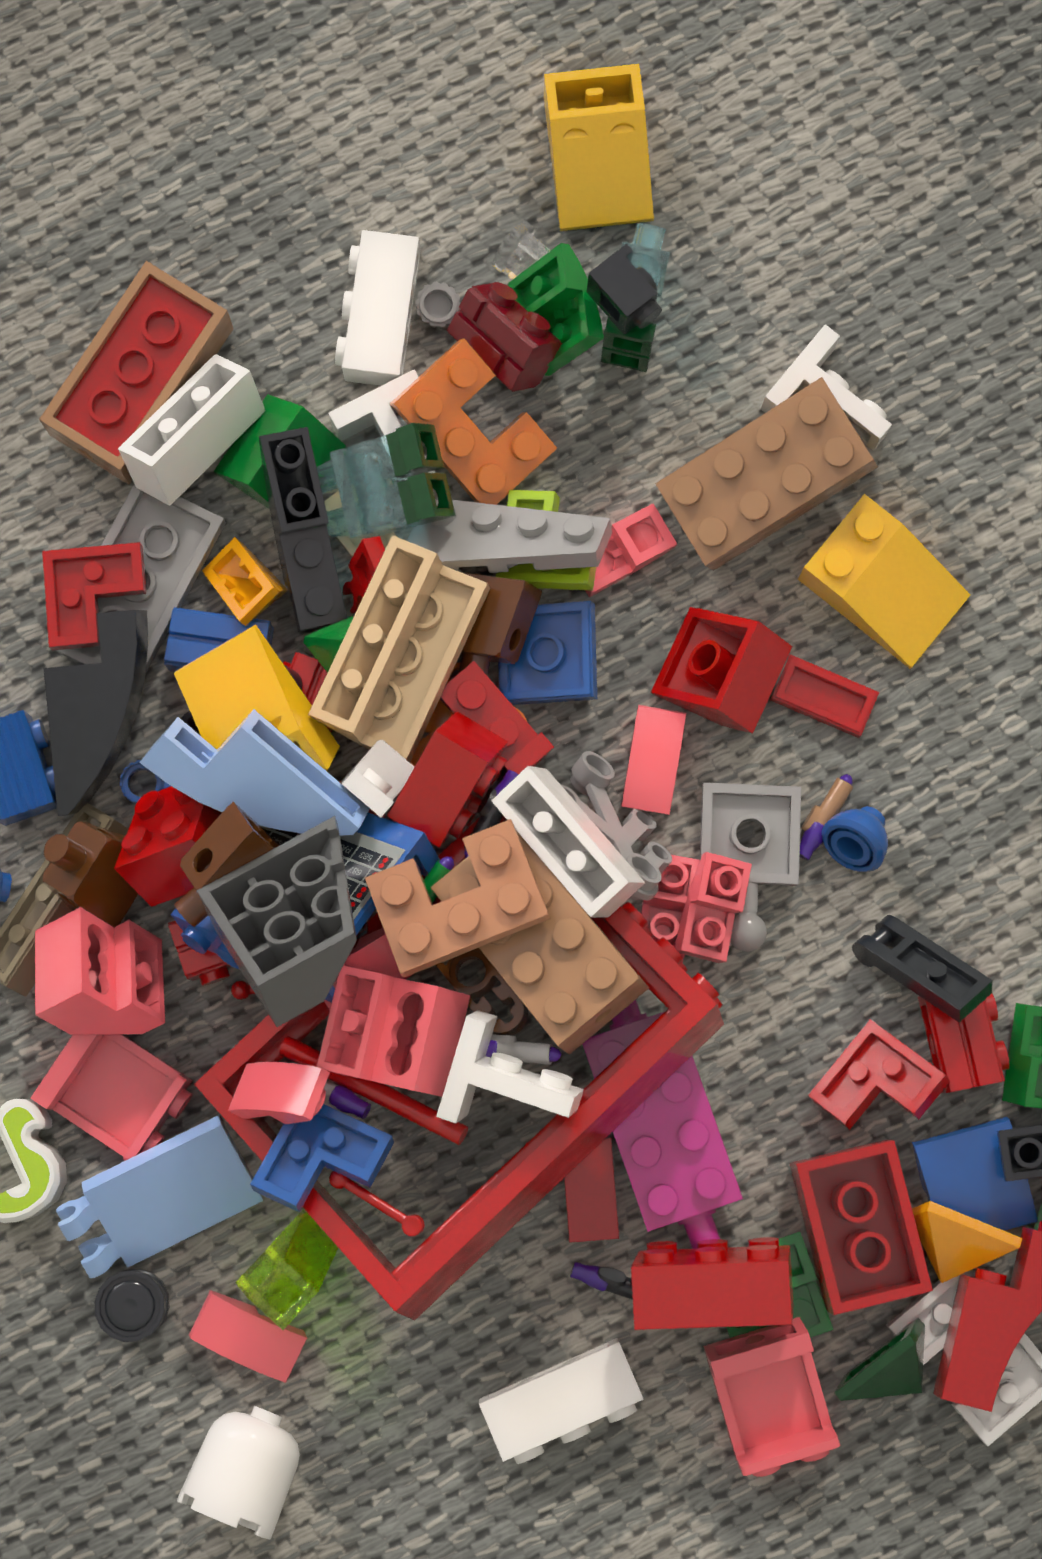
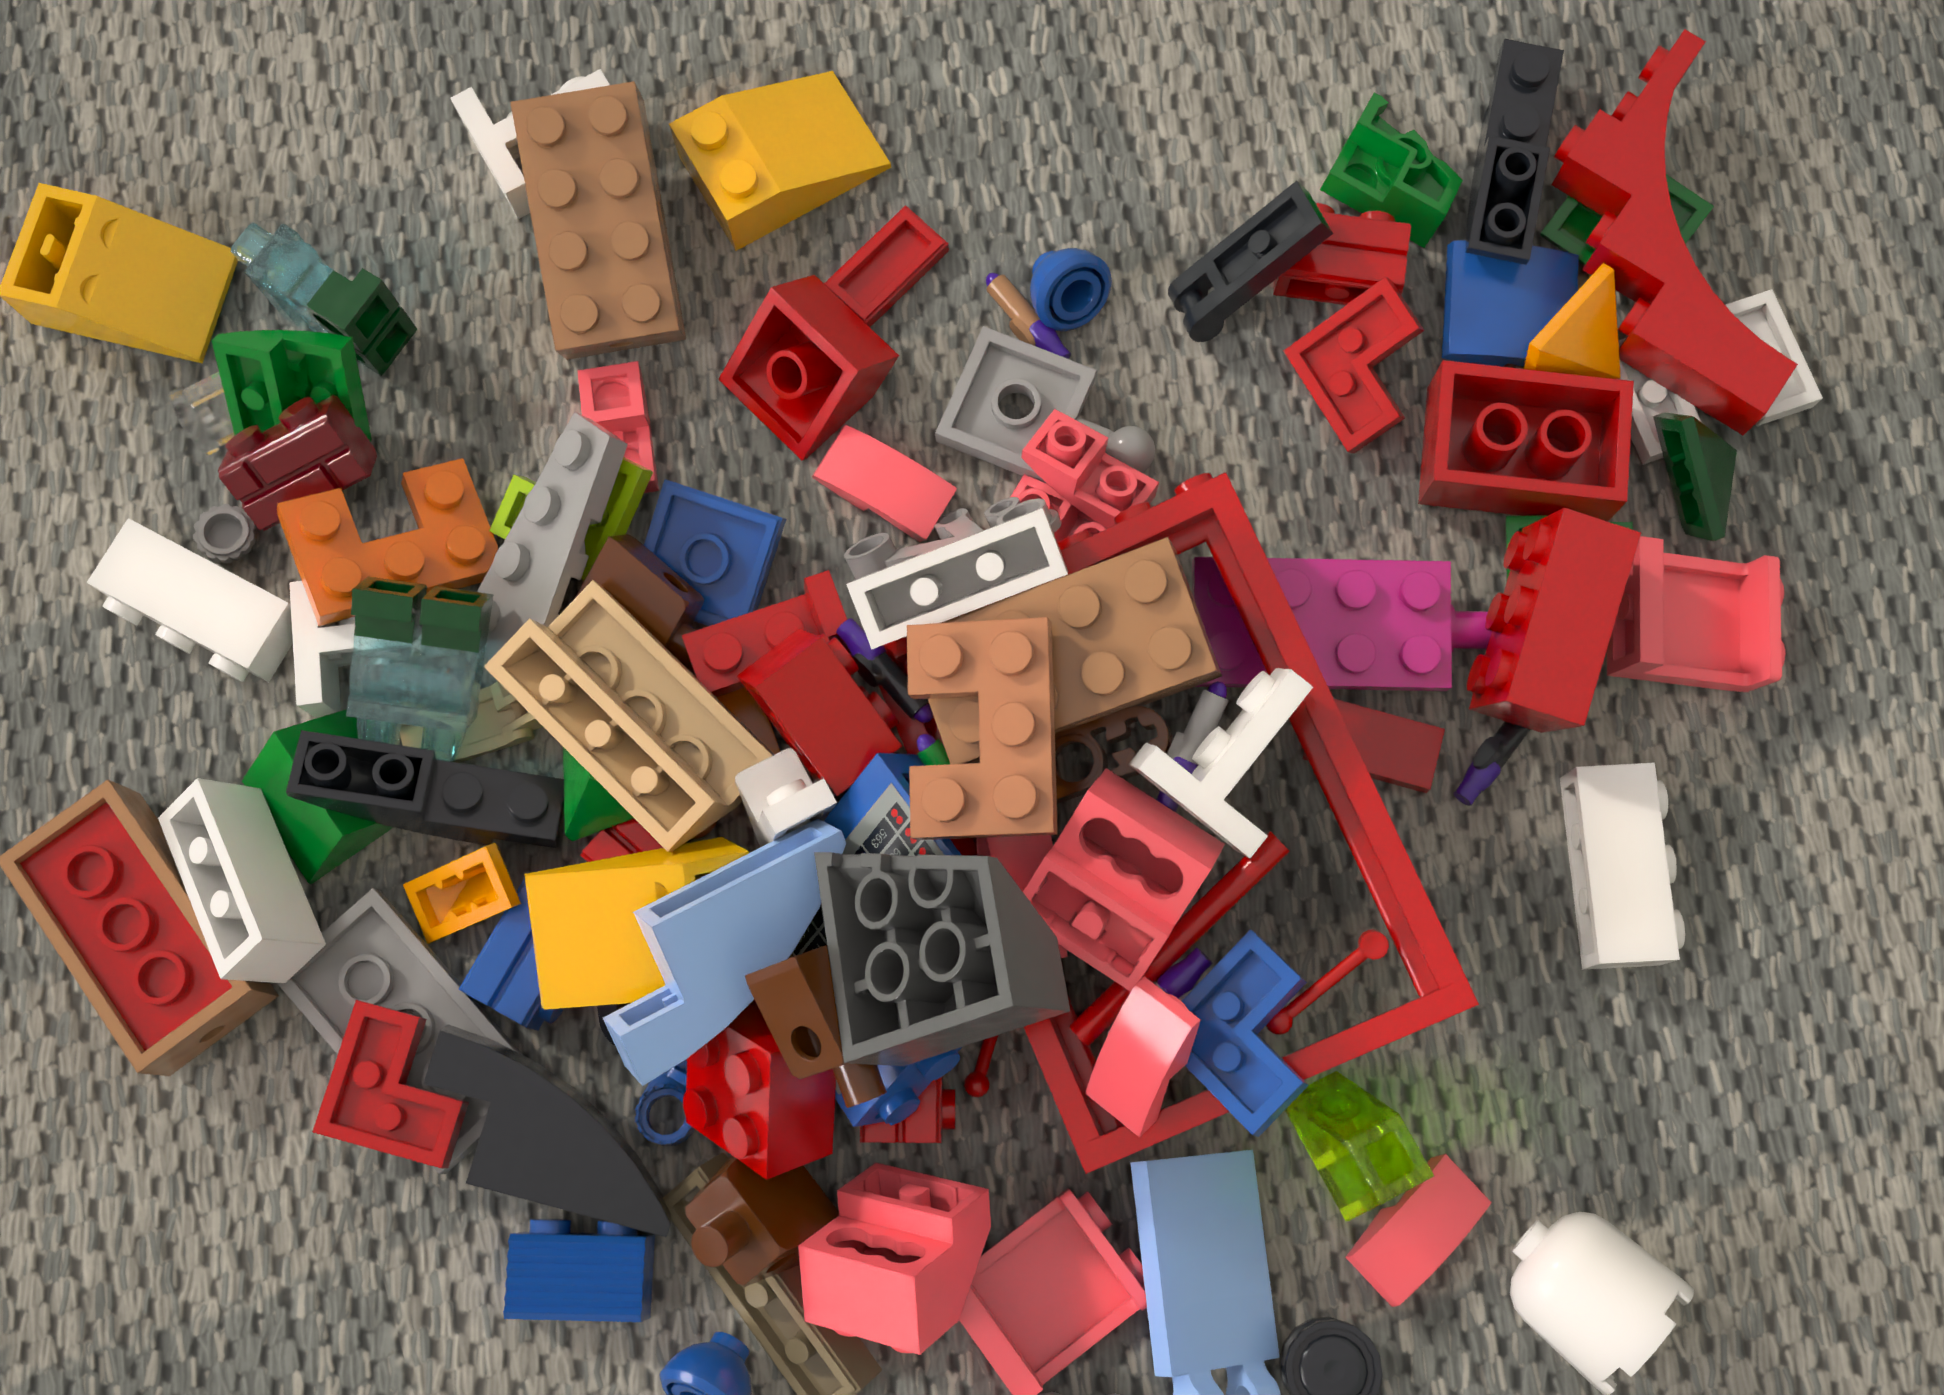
camera: 65 degrees left, 5 degrees down
(362, 568) = (516, 730): red plate -> none
(624, 291) = (304, 282): black brick -> none

